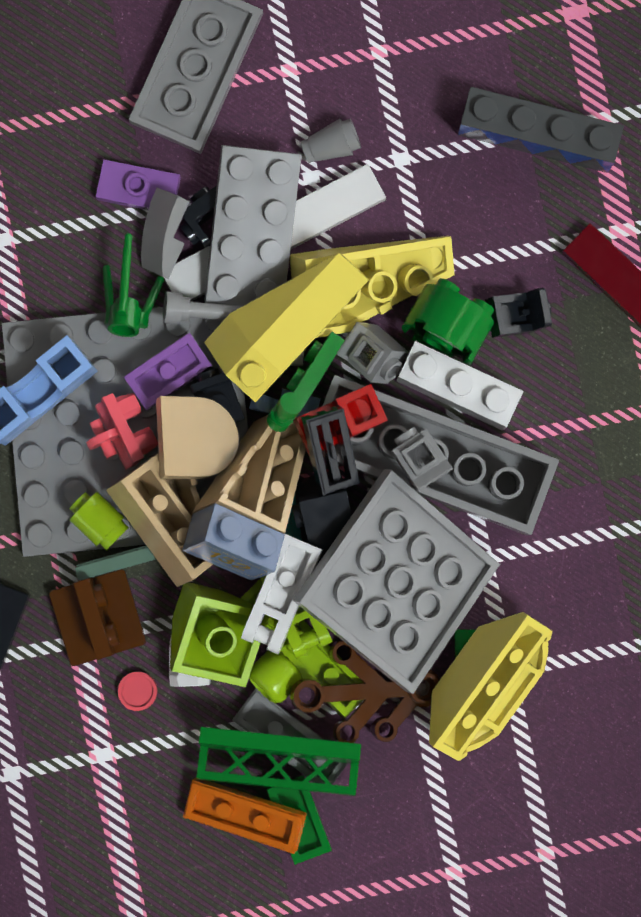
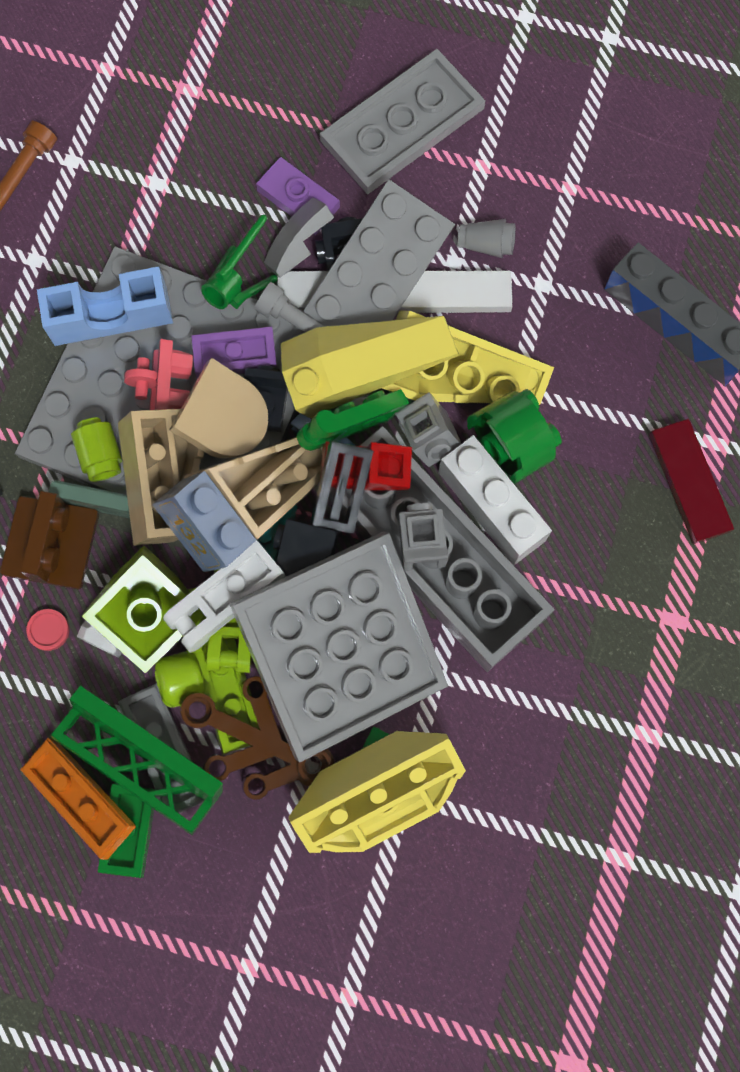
camera: 25 degrees right, 10 degrees down
(520, 313) = (583, 465): black bracket -> none

